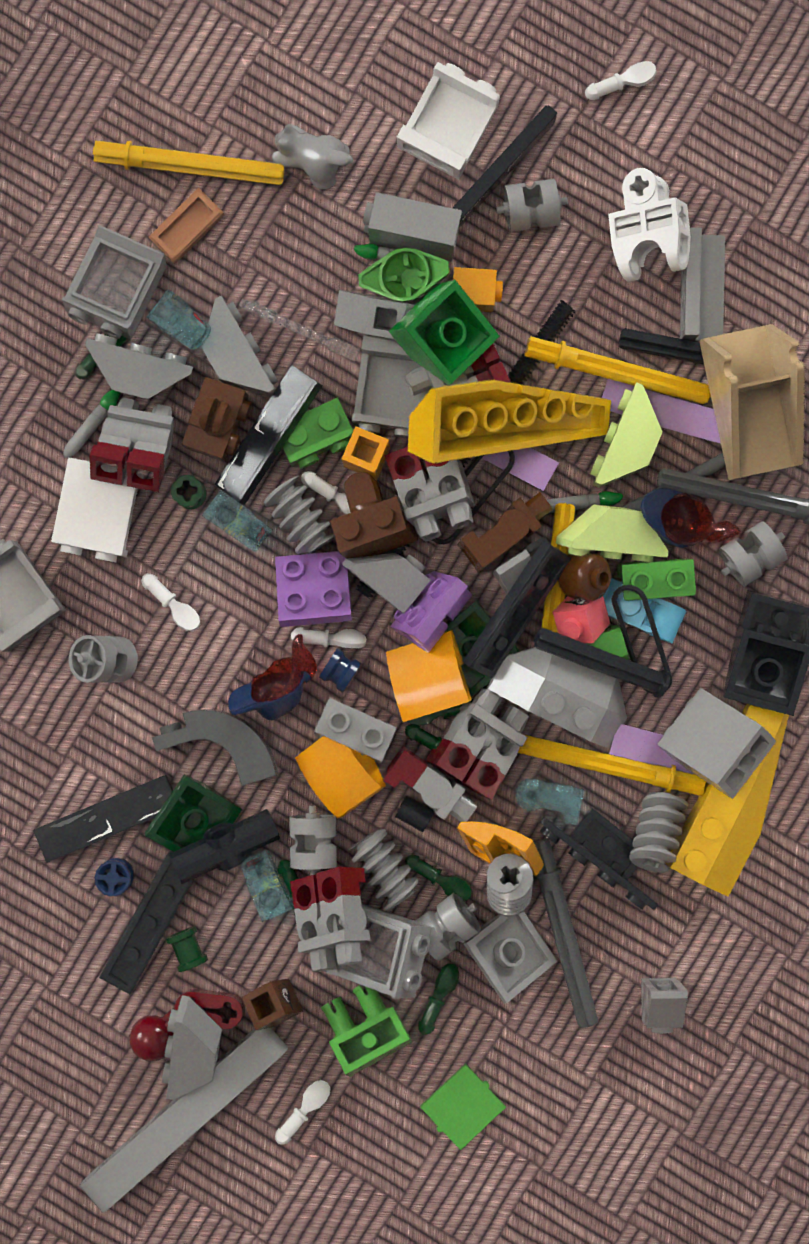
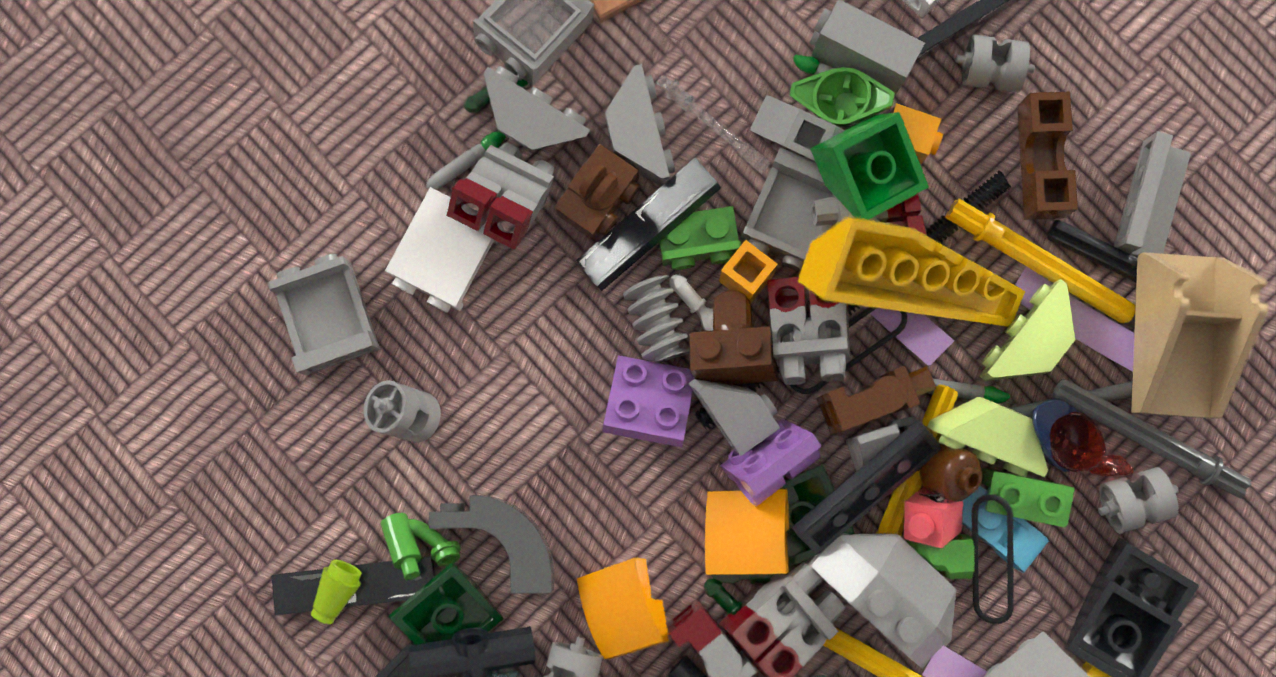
camera: 20 degrees right, 5 degrees down
(92, 825) = (335, 589): none -> lime cone
(107, 877) = (336, 656): dark blue wheel -> none
(135, 769) = (403, 548): none -> bright green plant
(179, 321) = (589, 79): clear light blue leg -> none
(181, 485) = (539, 251): dark green bush -> none
(182, 613) = (501, 388): white piece -> none
(237, 521) = (588, 305): clear light blue leg -> none
(279, 687) = (582, 497): hair -> none
(340, 670) = (653, 497): dark blue wheel -> none
(346, 638) = (666, 464): white piece -> none
(355, 730) = (654, 569): light grey window -> none
(592, 265) = (1043, 129): none -> reddish brown arch
(602, 661) = (947, 573): black axle -> none
(649, 223) = (1116, 115): white piece -> none

